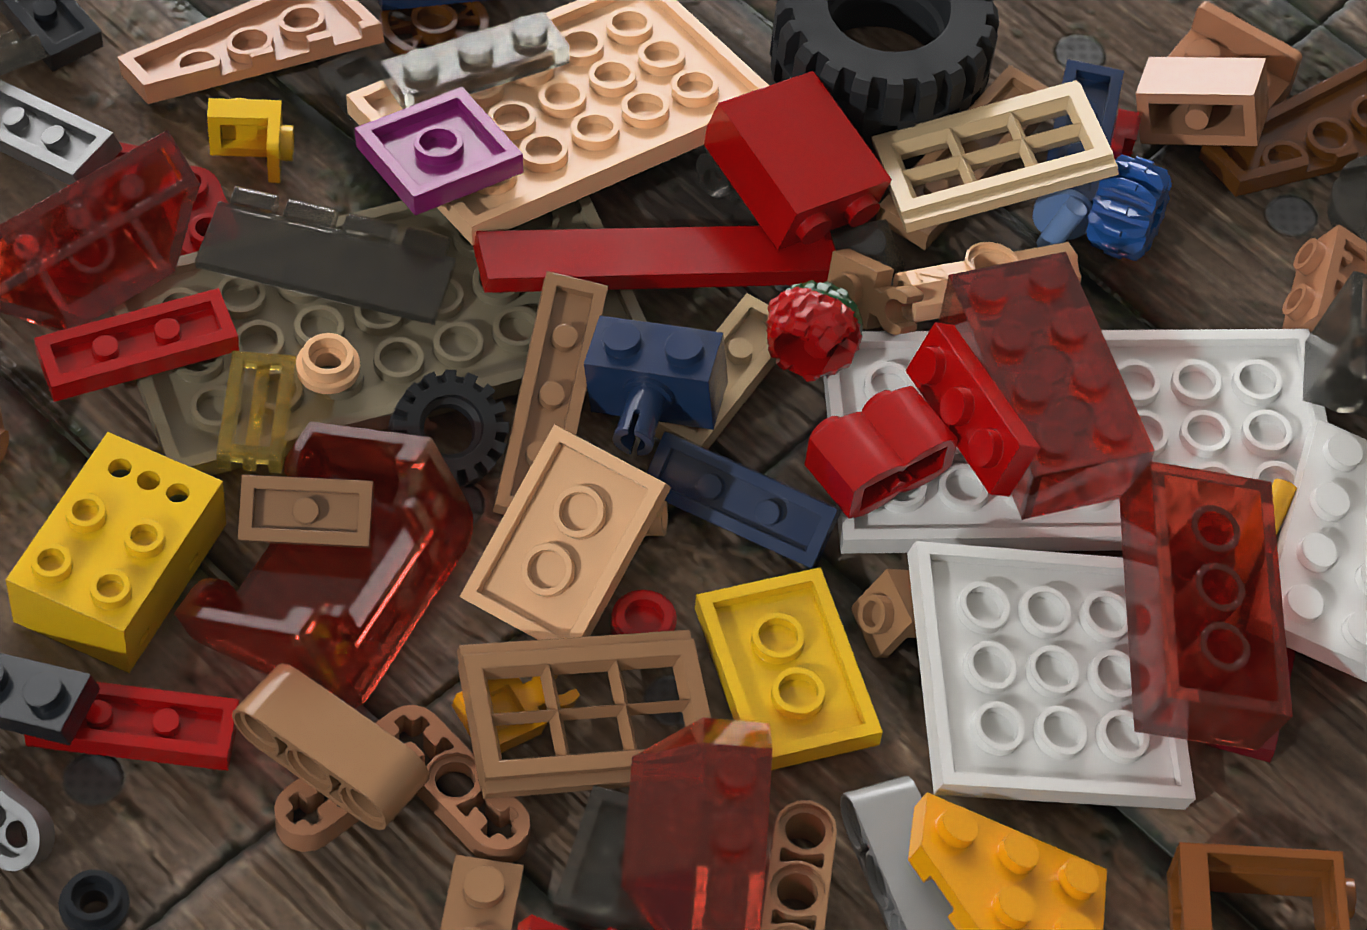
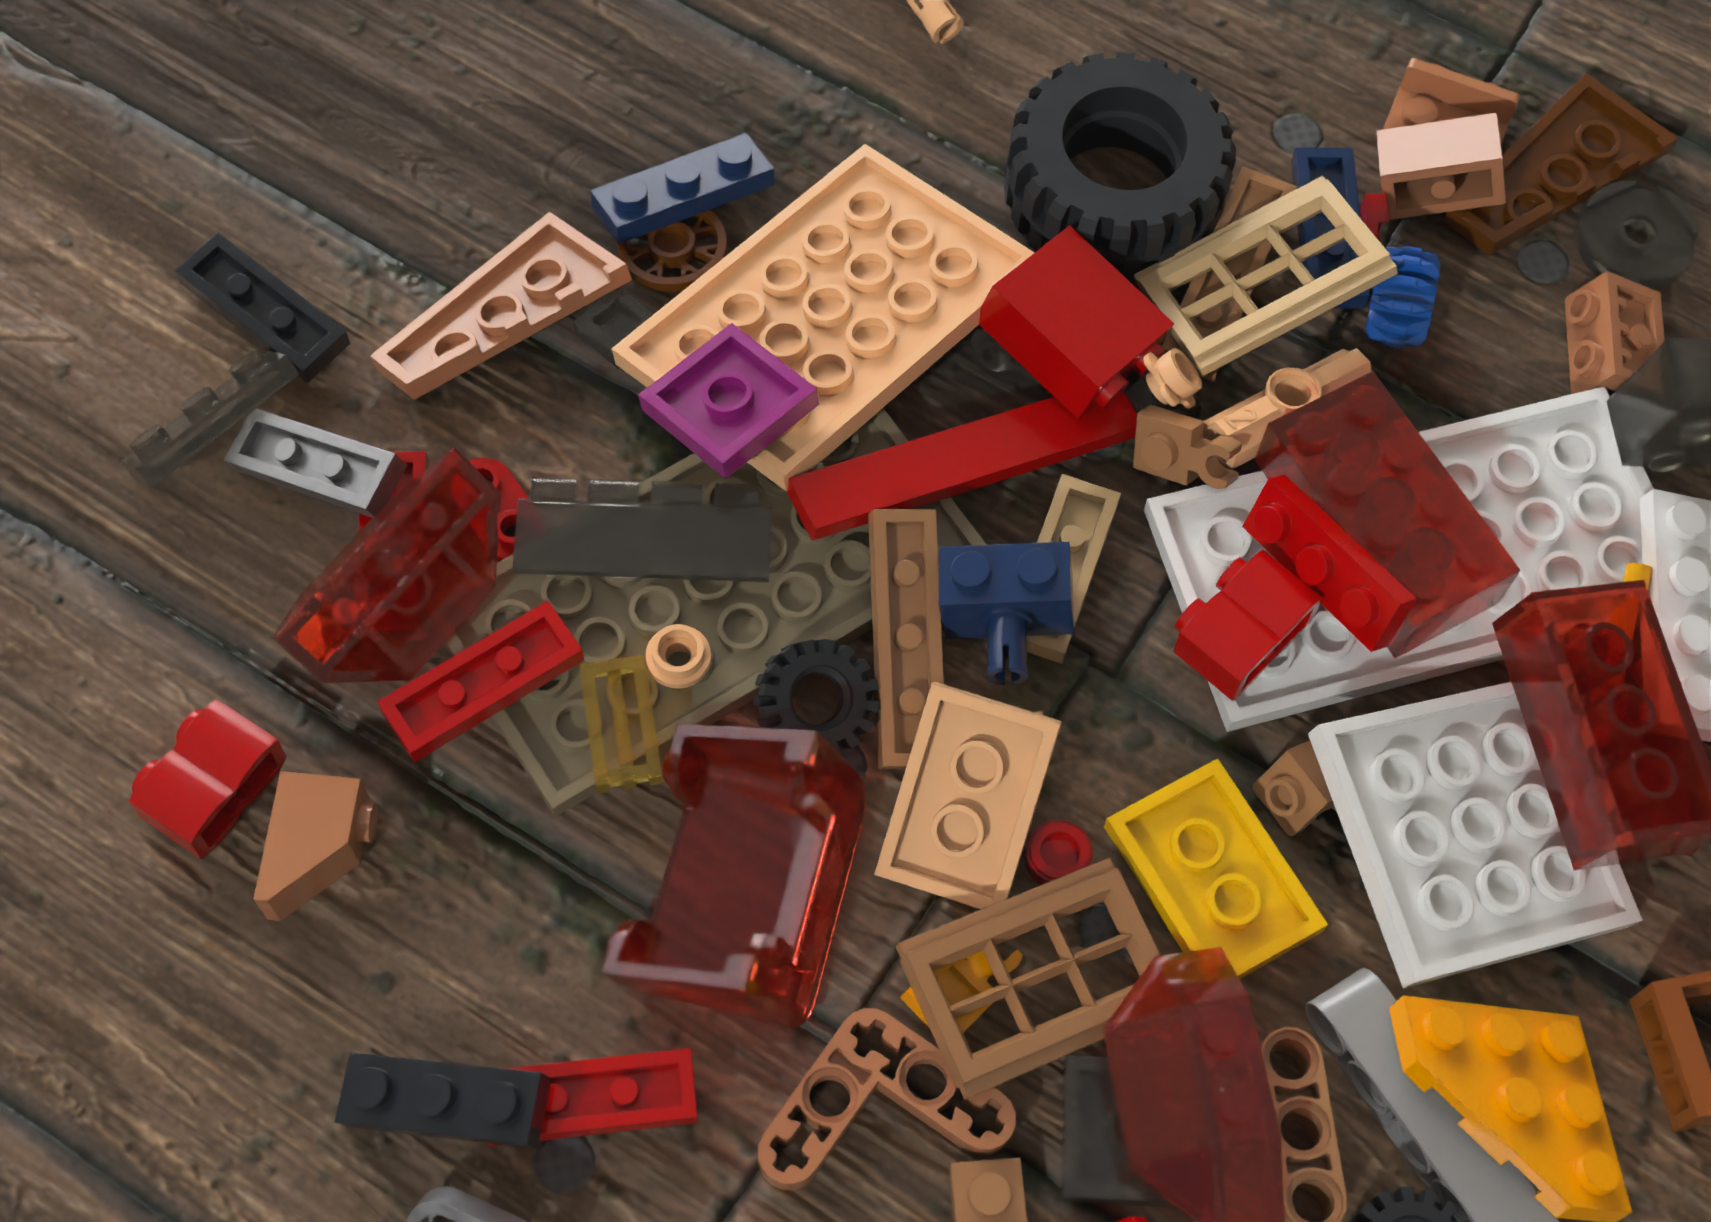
camera: 10 degrees left, 10 degrees up
(117, 551) = (522, 912): yellow piece -> none
(250, 130) = (526, 404): yellow bracket -> none
(306, 511) = (700, 822): medium nougat plate -> none
(331, 746) = (801, 1085): medium nougat beam -> none
(477, 60) = (731, 286): clear smoke plate -> none
(744, 500) = (1120, 701): dark blue plate -> none
(813, 329) = (1145, 506): red piece -> none
(877, 227) = (1172, 378): none -> light nougat plate
(1061, 216) = (1338, 325): medium blue plate -> none

